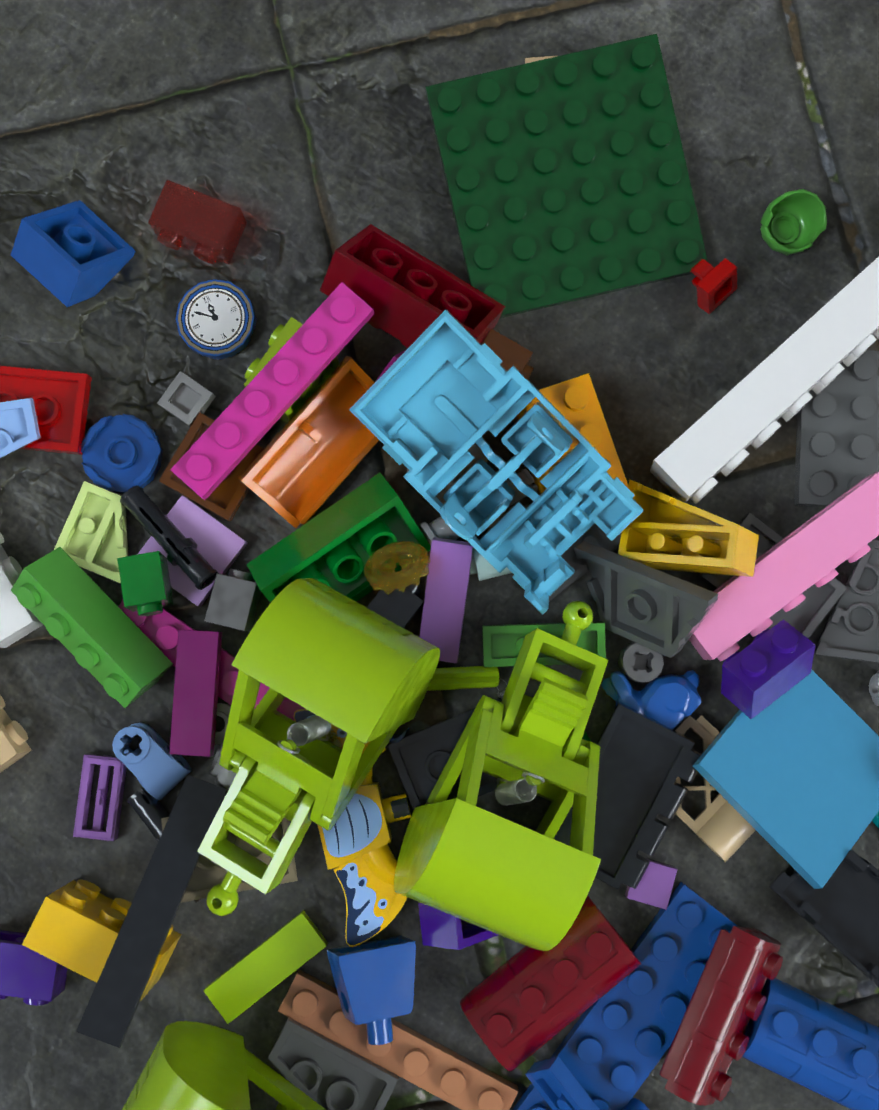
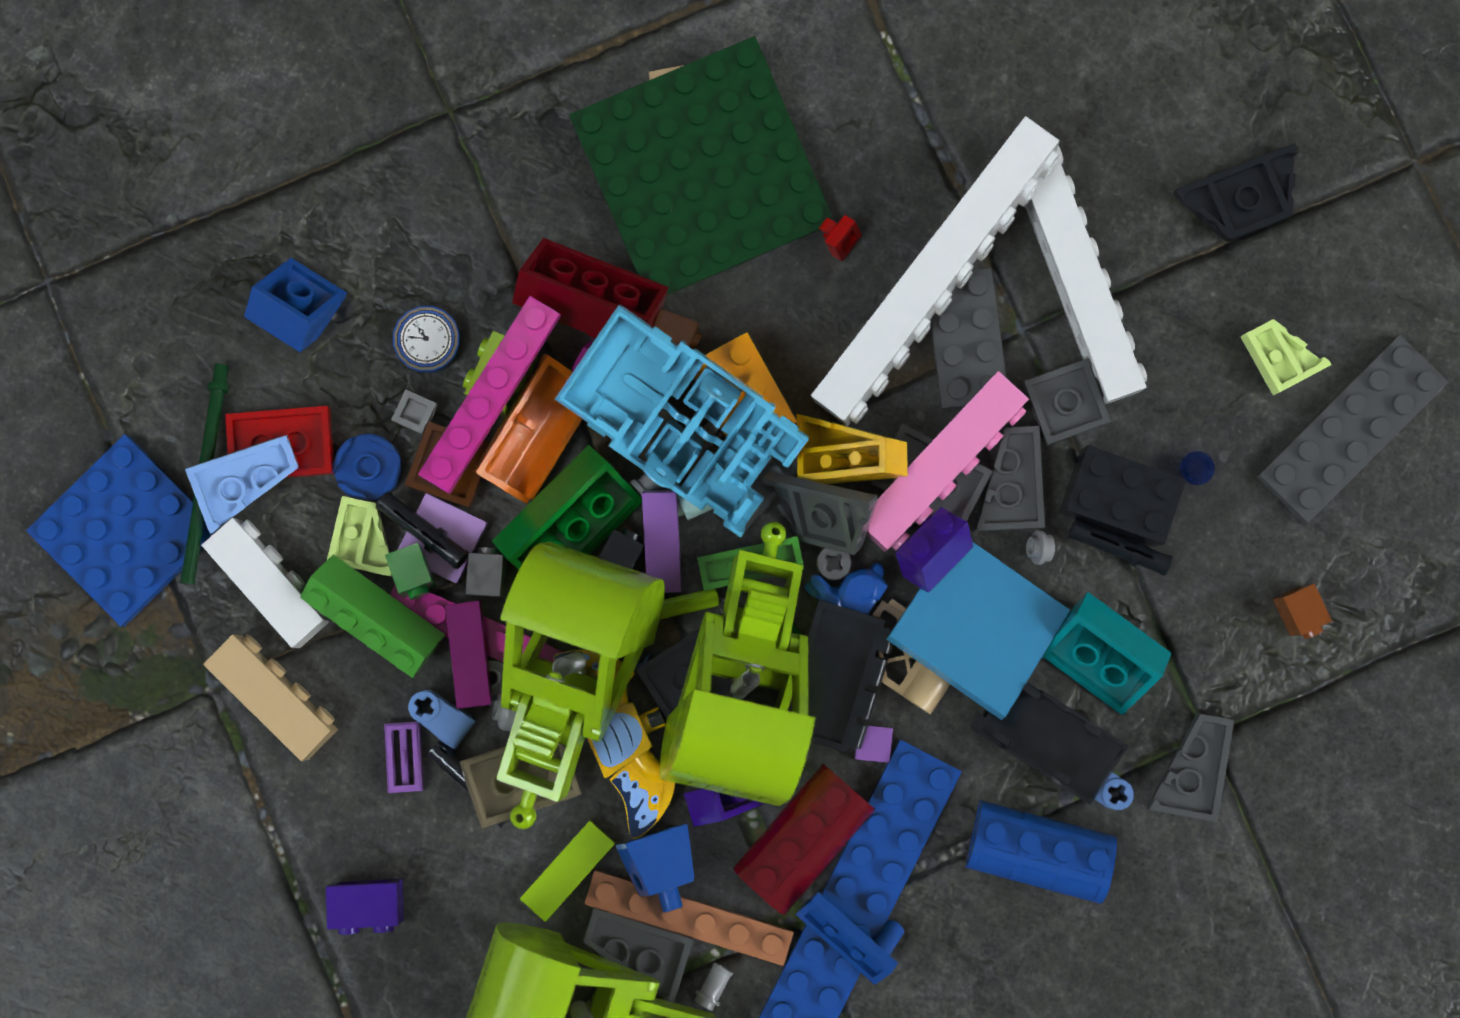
camera: 15 degrees left, 0 degrees up
(80, 928) = (431, 867): yellow brick -> none
(151, 913) = (469, 832): black tile -> none
(197, 223) = (396, 261): clear red brick -> none
(382, 564) = (604, 525): clear yellow gear -> none
(719, 1014) = (943, 834): dark red container -> none
(793, 221) = (897, 173): bright green hair -> none

